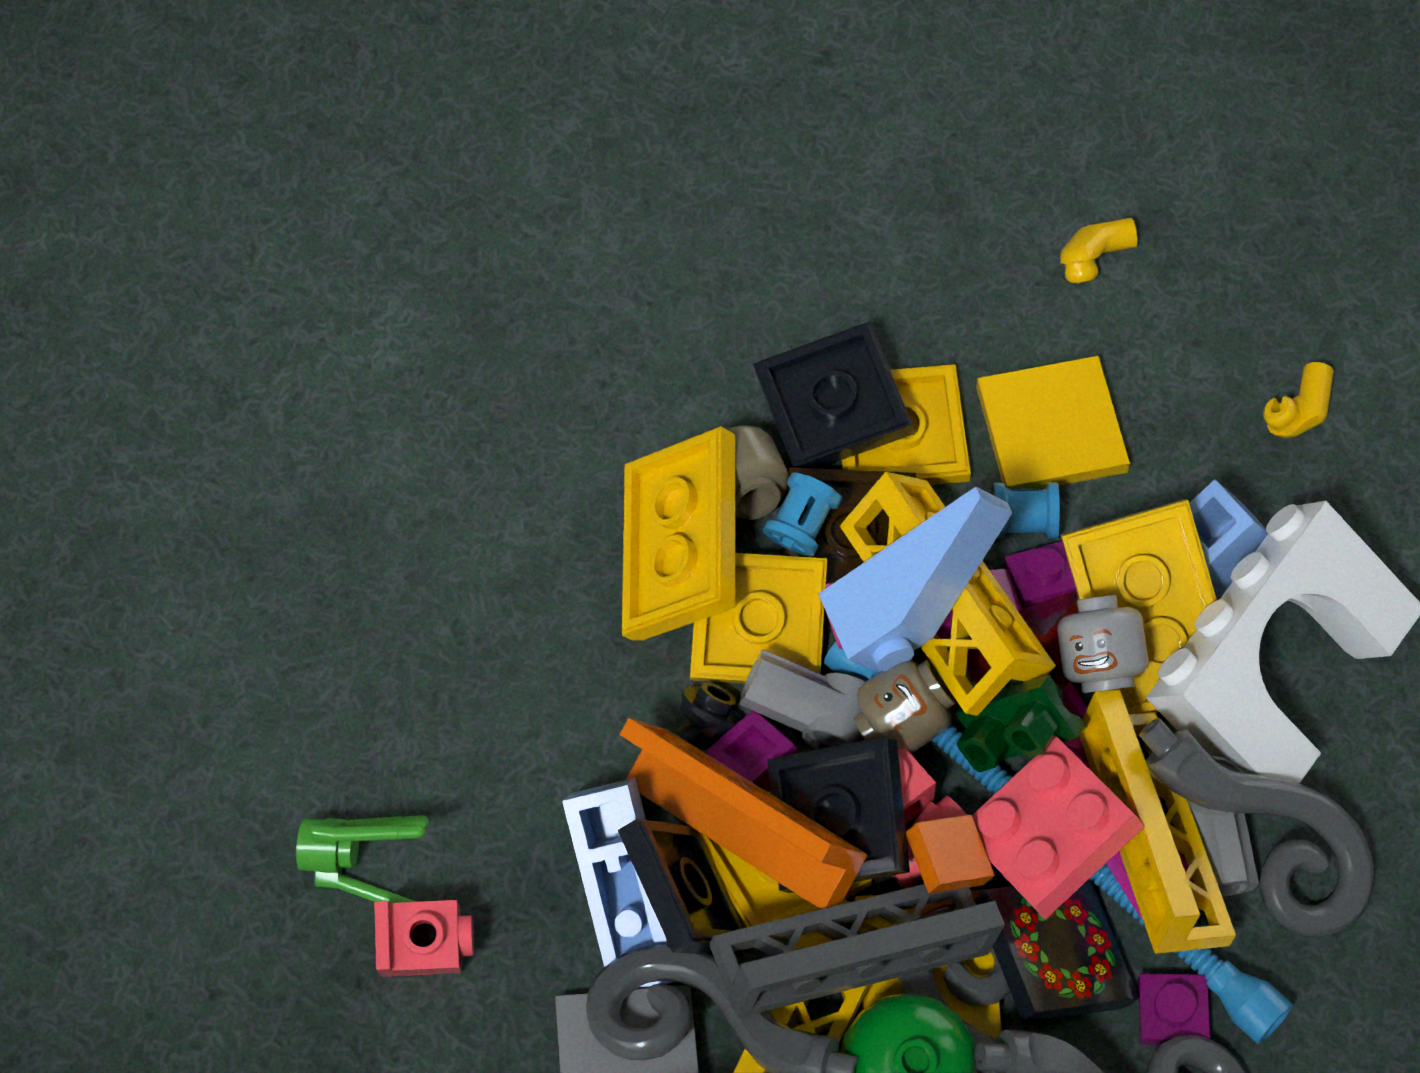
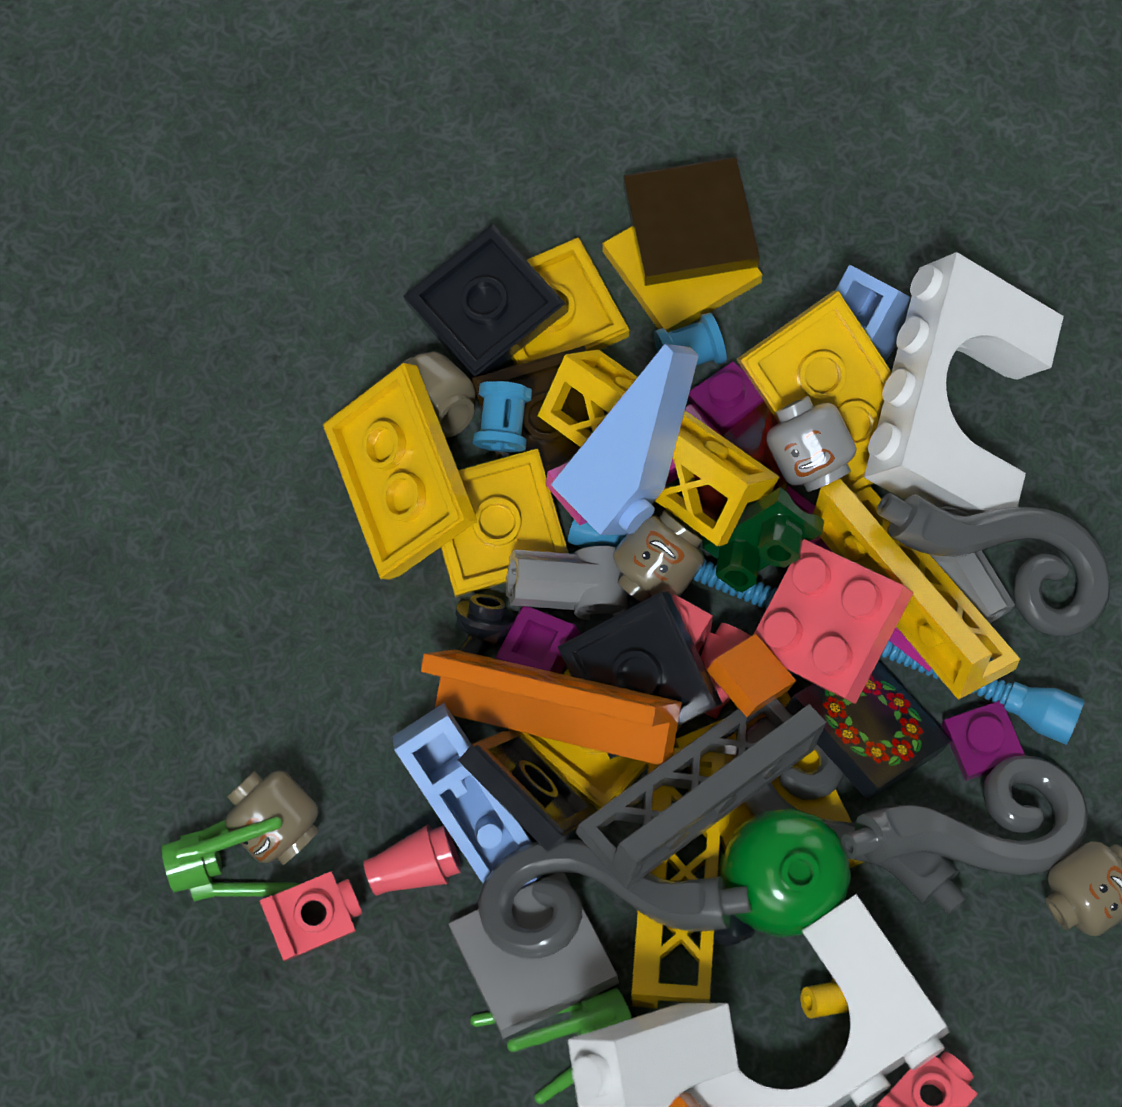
camera: 20 degrees left, 5 degrees up
(438, 813) = (268, 798): none -> dark tan head
(545, 924) = (415, 862): none -> coral cone
(1075, 385) = (690, 221): none -> dark brown tile
(1093, 241) = (653, 91): yellow arm -> none
(1307, 409) = (892, 177): yellow arm -> none

